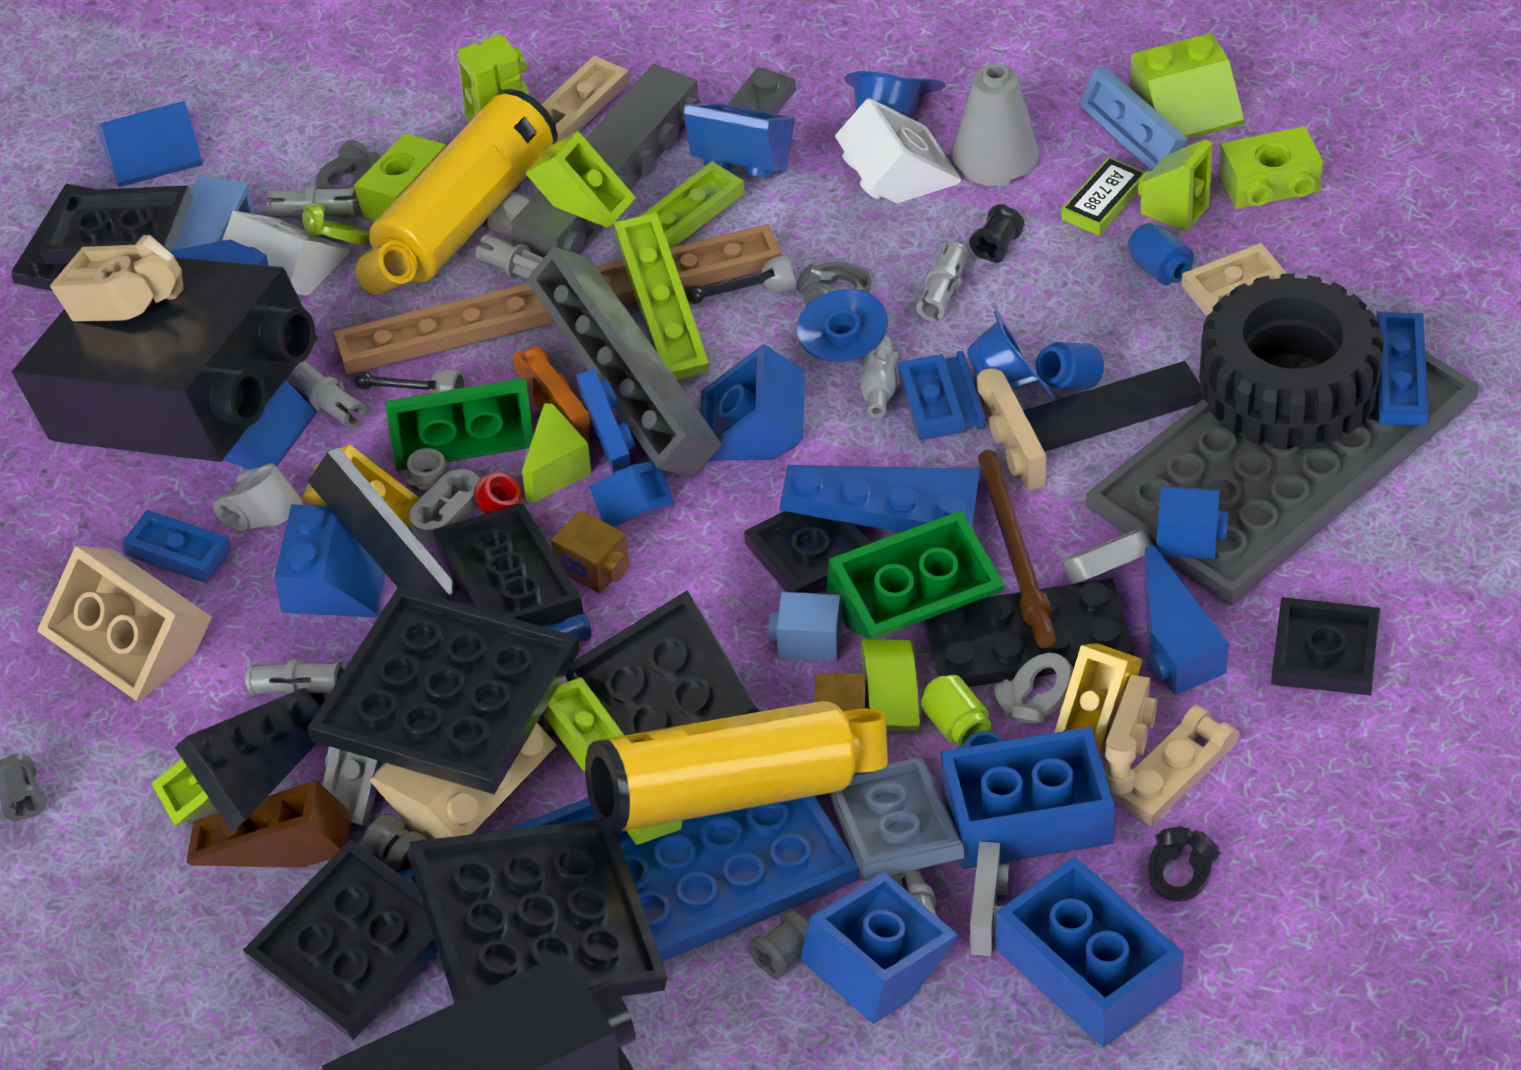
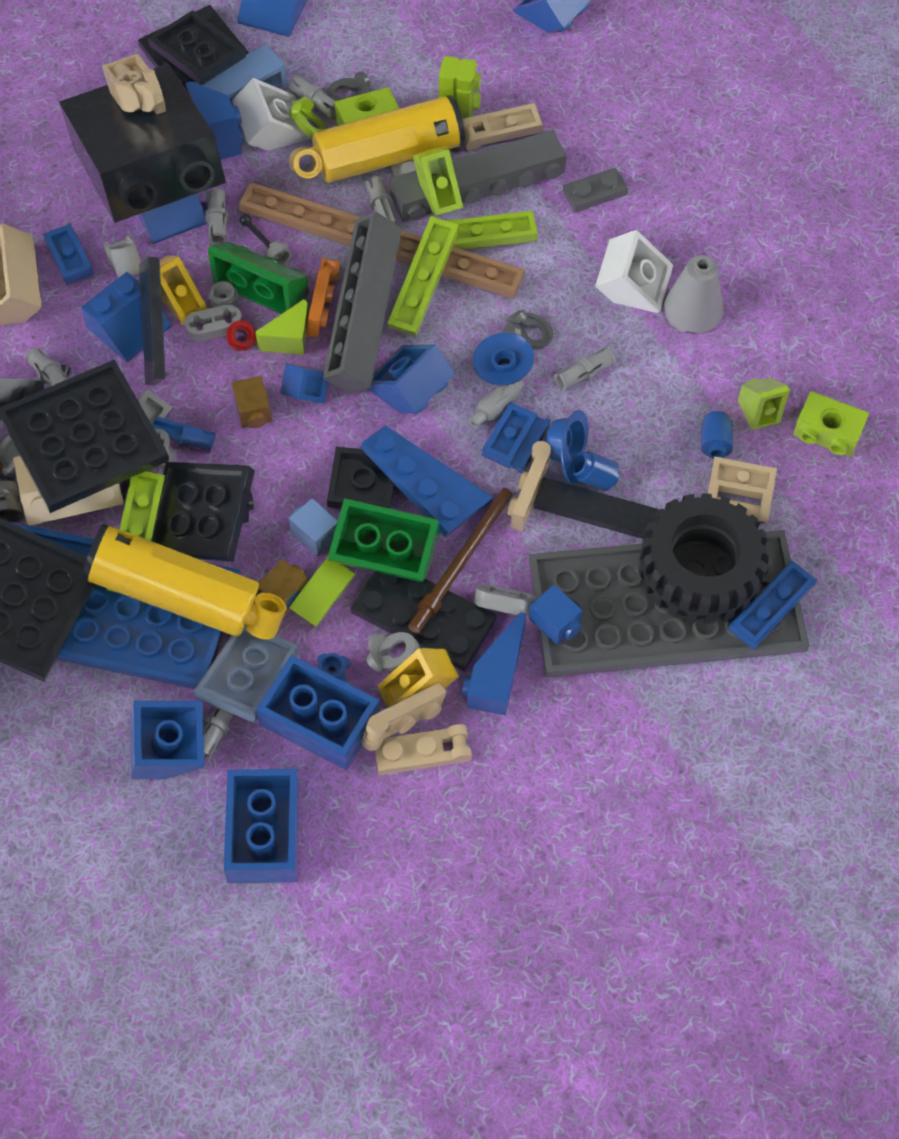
camera: 35 degrees right, 15 degrees up
(508, 567) = (196, 385): black plate -> none
(613, 437) = (318, 332): blue plate -> none
(739, 137) = (556, 204): blue slope -> none
(775, 275) = (502, 303): hinge -> none
(780, 945) = (123, 698): dark grey bush -> none
(890, 90) = (661, 236): blue piece -> none
(954, 709) = (339, 631): lime brick -> none
(990, 881) = (257, 745): light grey plate -> none
(994, 237) = (641, 359): black bush -> none
(1103, 196) = (724, 376): tile -> none
(1130, 118) = (783, 340): medium blue plate -> none
(1167, 849) = (385, 812): black piece -> none
(1188, 85) = (832, 341): lime slope -> none
(1325, 646) = (567, 741): black plate -> none

